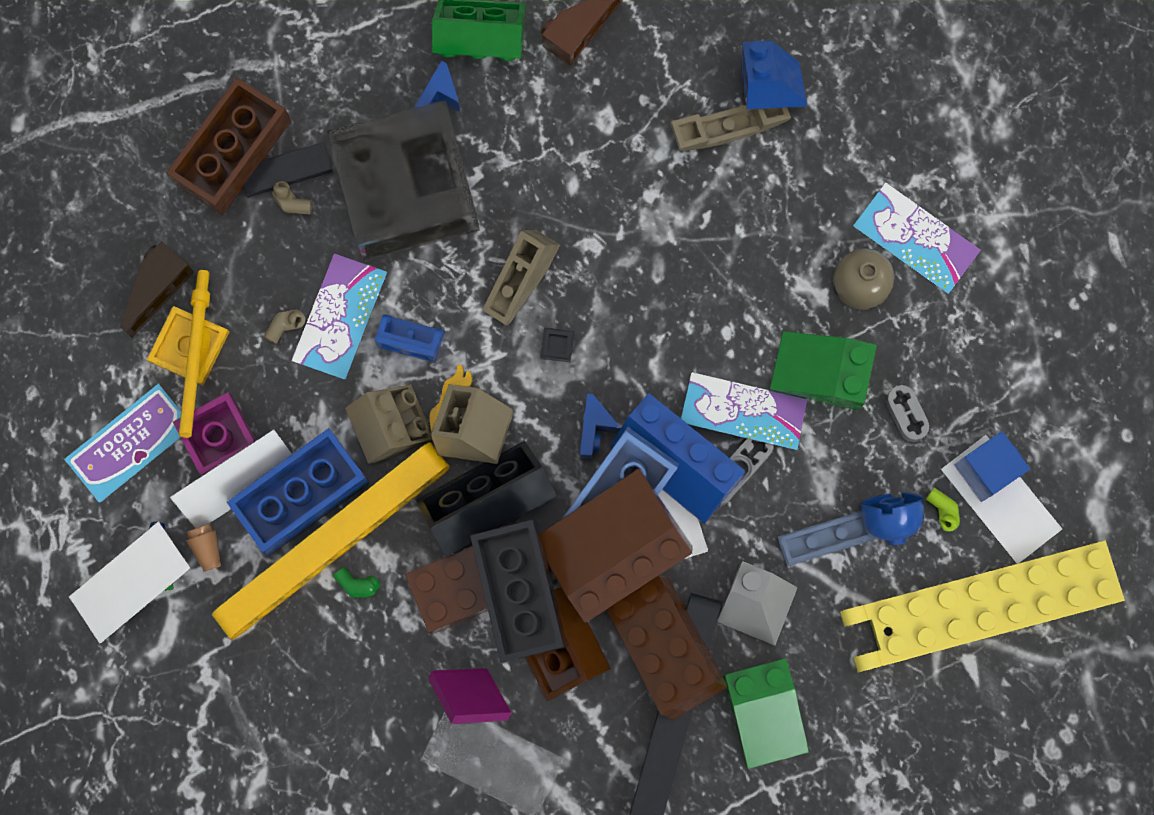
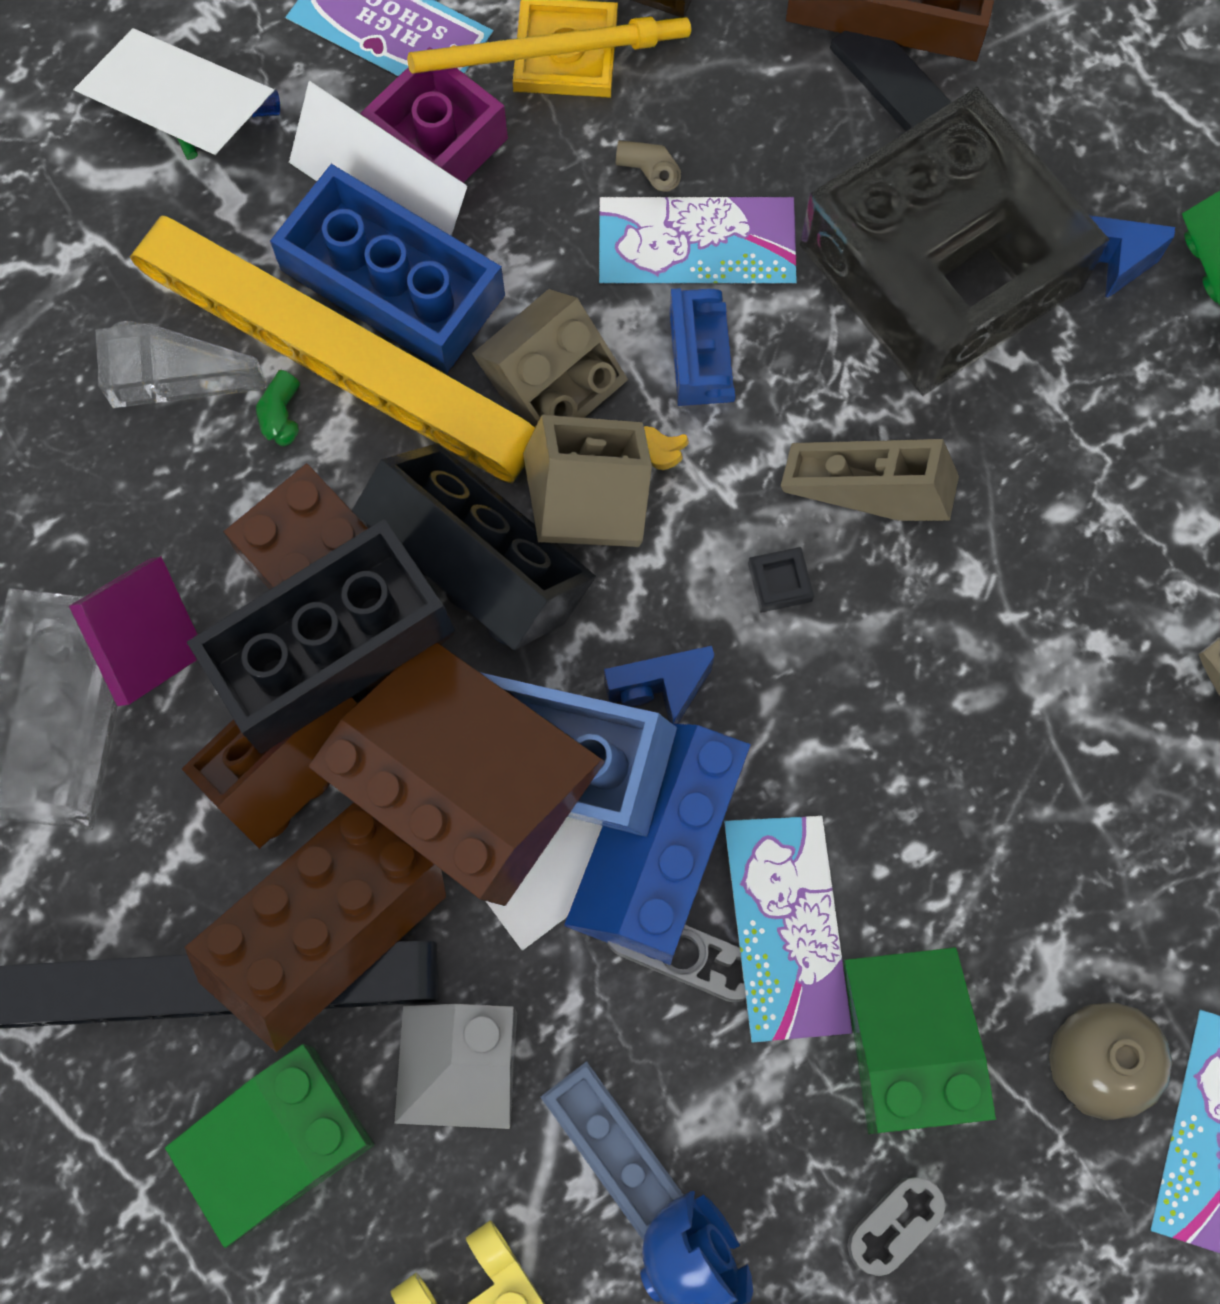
camera: 70 degrees right, 5 degrees down
(204, 547) = (262, 174): medium nougat cone -> none
(288, 202) = (848, 100): dark tan arm -> none
(304, 643) = (159, 365): none -> clear slope

